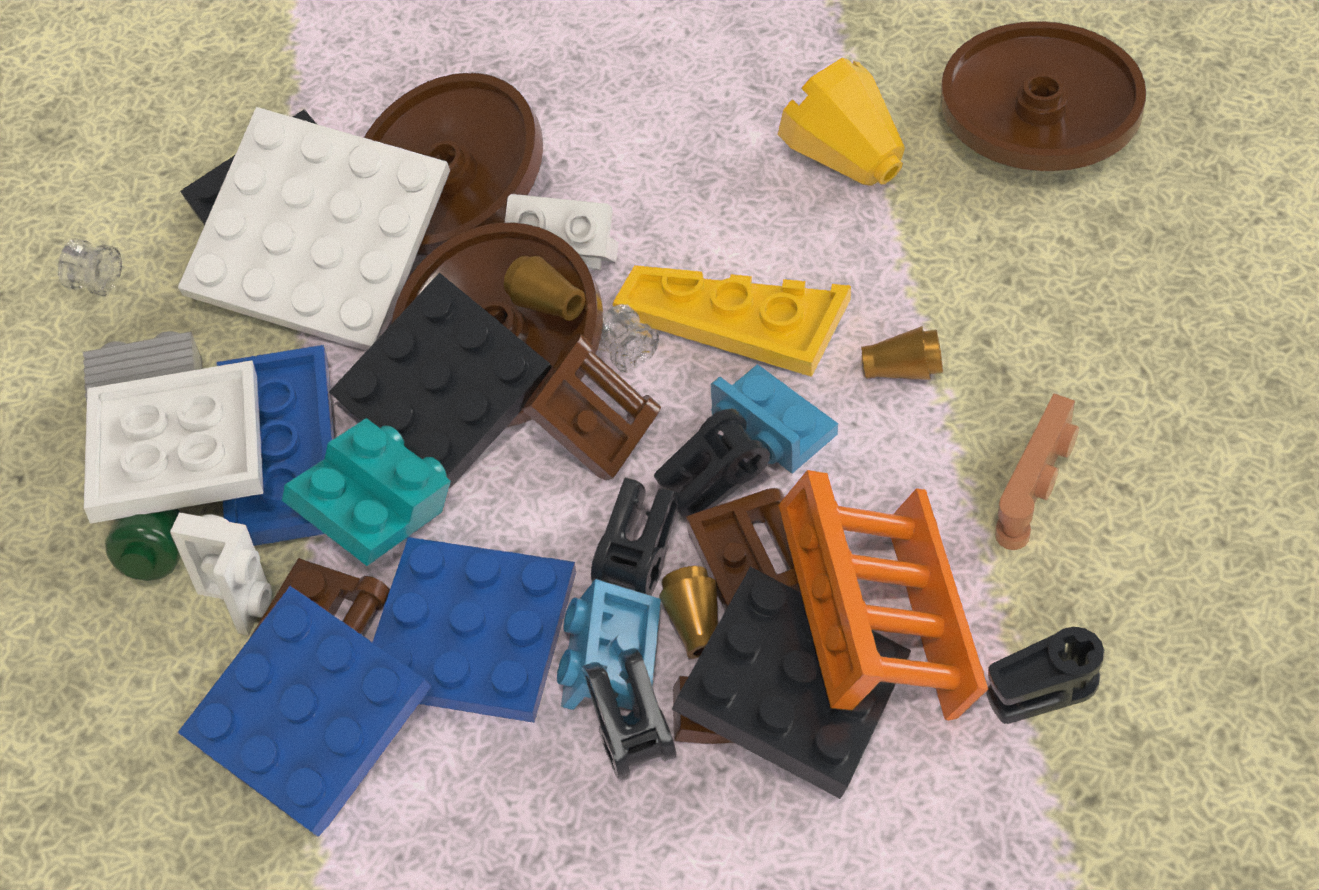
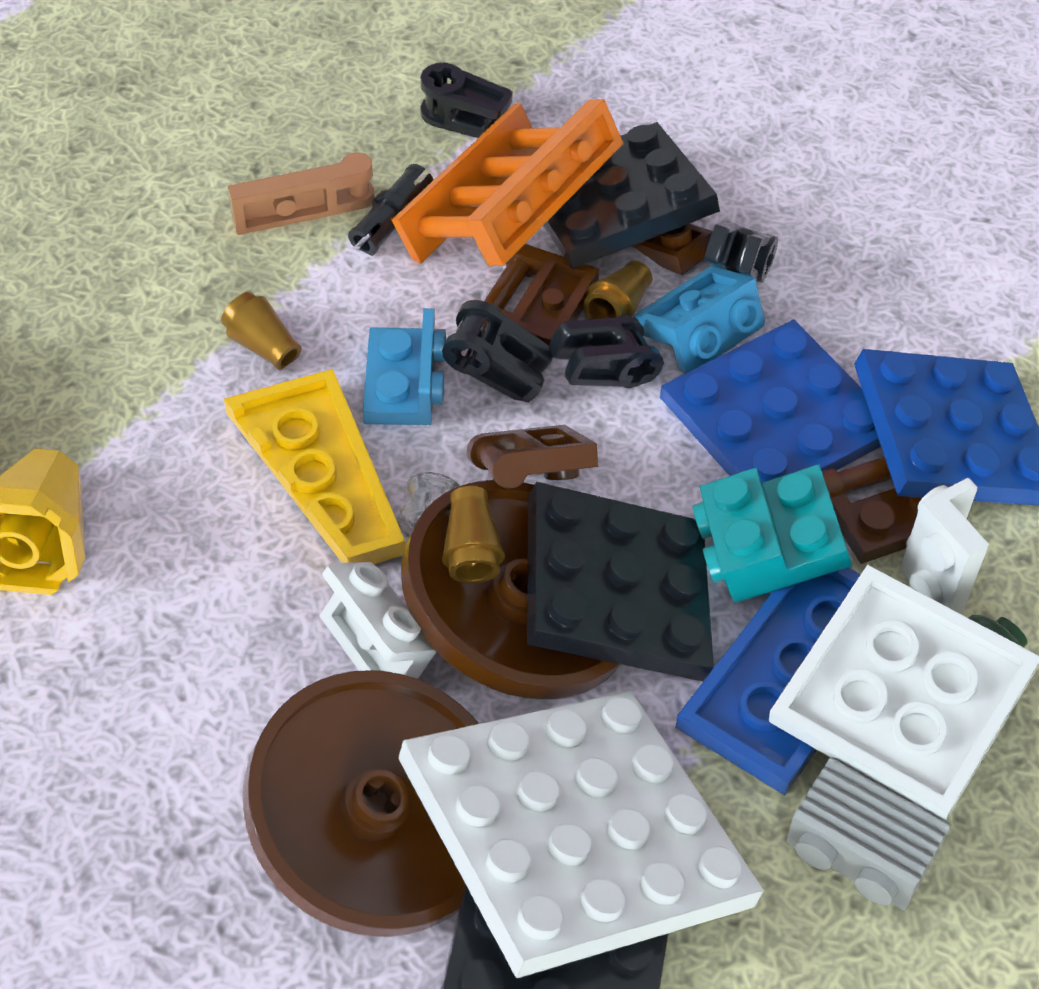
camera: 140 degrees left, 0 degrees up
(961, 529) = (385, 207): none -> black pin

